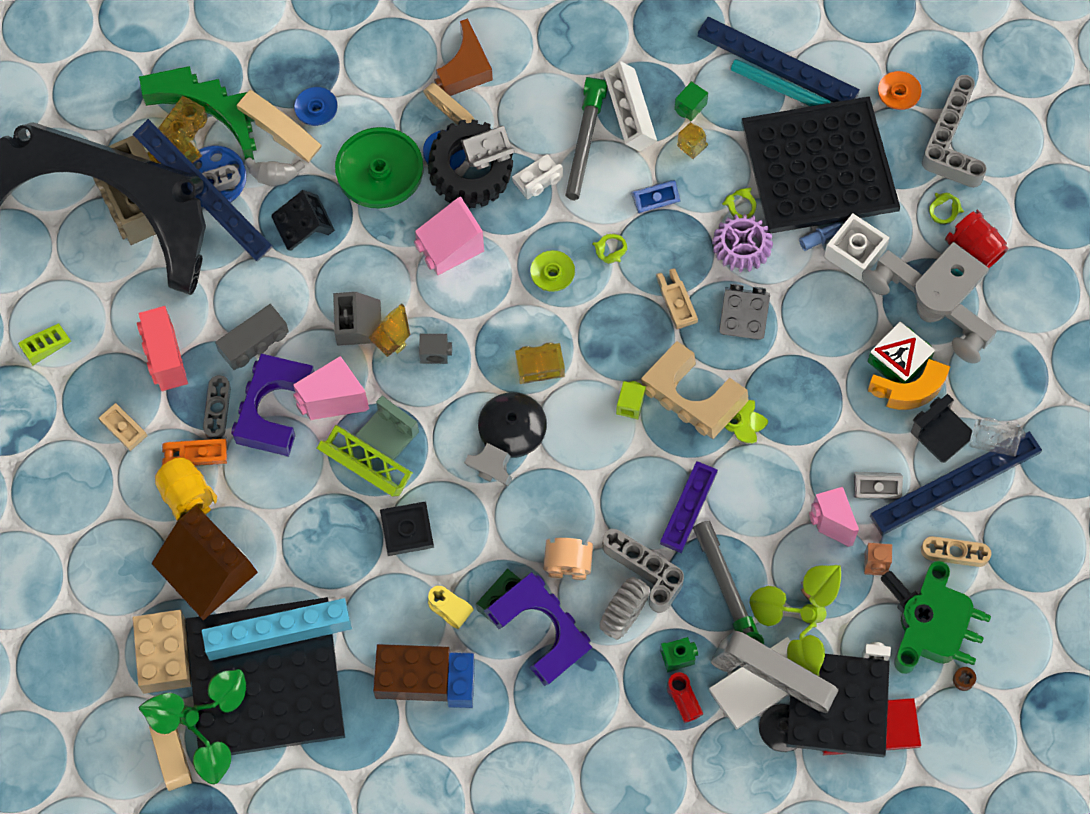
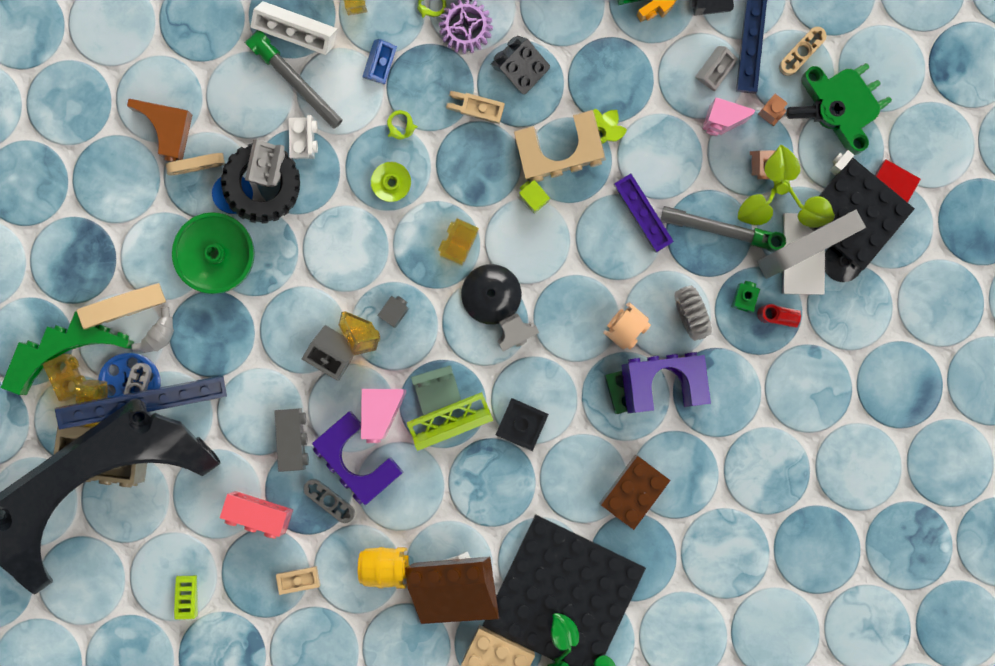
camera: 55 degrees left, 20 degrees up
(198, 451) = (356, 539): orange plate -> none
(276, 629) = (541, 569): medium azure brick -> none
(301, 218) = (215, 339): black bracket -> none
(313, 99) = (113, 265): blue dish -> none
(450, 237) = (311, 240): bright pink slope -> none
(451, 609) = (605, 432): light yellow piece -> none
(461, 680) = (663, 461): blue brick -> none
(639, 566) = (663, 277): light grey beam -> none
(968, 671) = (889, 117): reddish brown bush -> none

